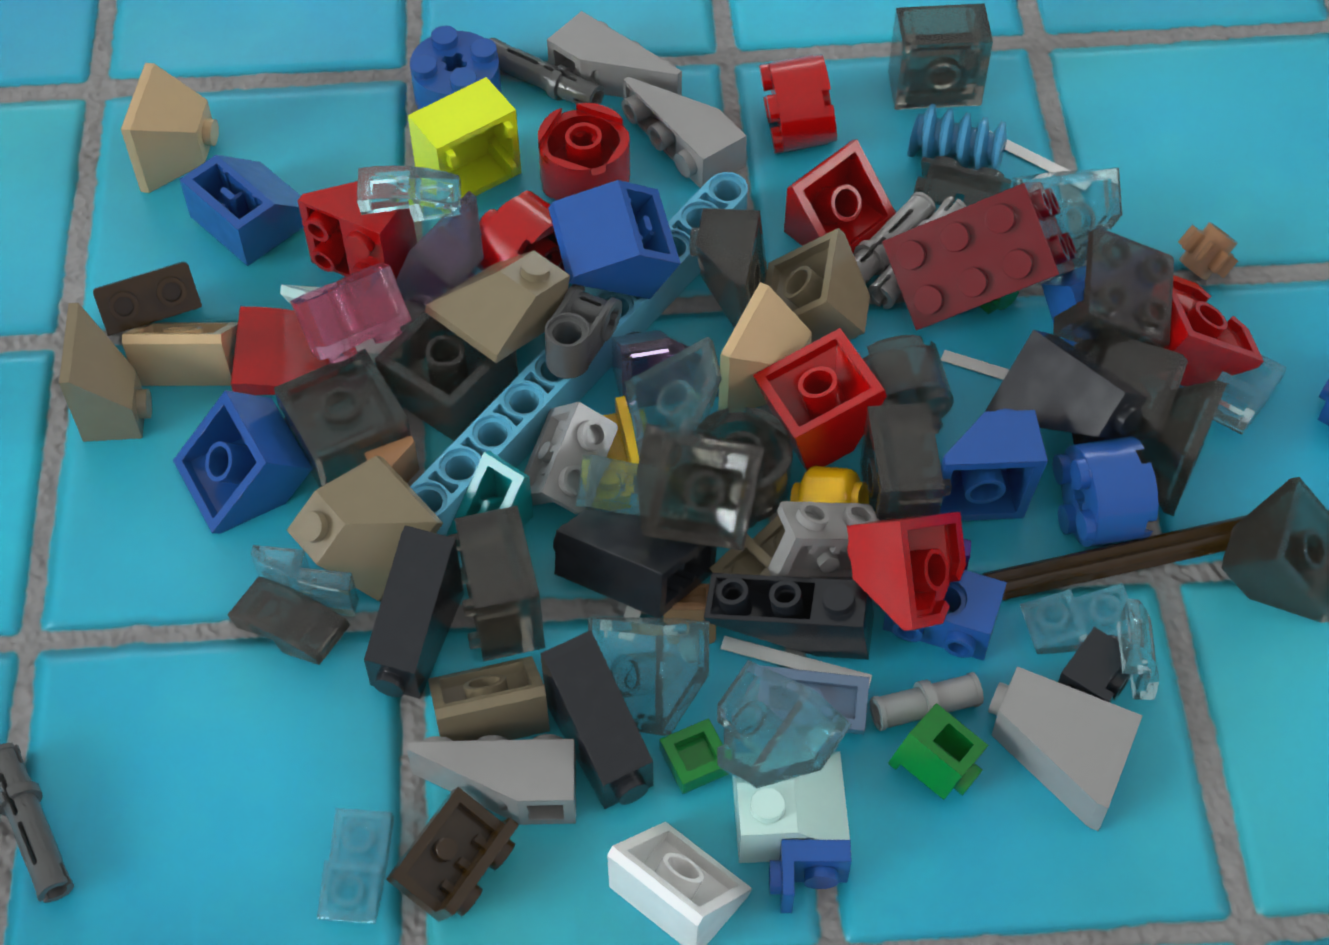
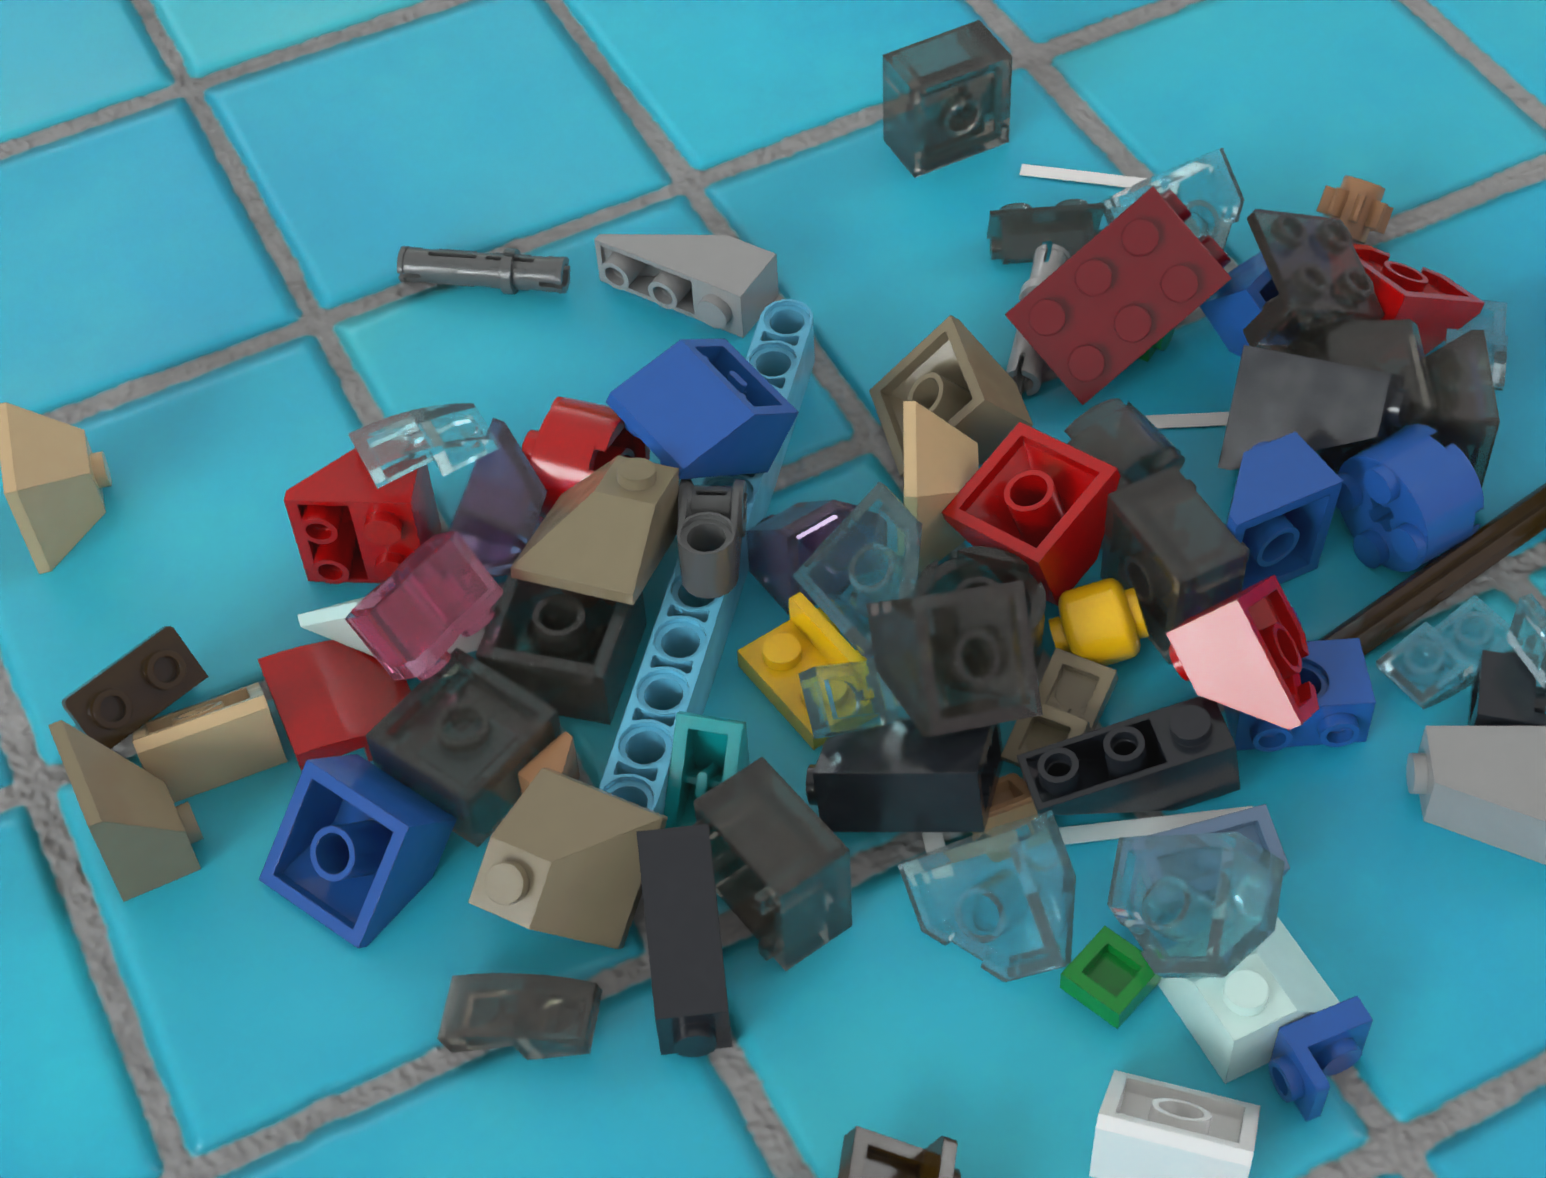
camera: 20 degrees left, 5 degrees down
(242, 205) = (194, 542): blue slope -> none
(292, 569) = (491, 950): clear light blue slope -> none
(450, 63) = (384, 306): blue brick -> none
(468, 136) = (445, 355): neon yellow container -> none
(491, 700) = (829, 1015): dark tan slope -> none
(513, 778) = (908, 1090): light grey slope -> none
(559, 452) = (761, 682): light grey bracket -> none
(582, 150) = (590, 336): red brick -> none
(594, 714) = (979, 981): black slope -> none
(608, 57) = (558, 222): light grey slope -> none
(730, 256) = (844, 400): clear smoke slope -> none
(798, 103) = (815, 199): red brick -> none
(817, 539) = (1127, 669): light grey bracket -> none
(838, 195) = (916, 291): red slope -> none
(871, 253) = (1005, 282): light grey pin -> none
(916, 702) = (1337, 808): light grey pin -> none
(941, 753) = (1390, 859): green brick -> none
(958, 139) = (1015, 179): dark azure piece -> none

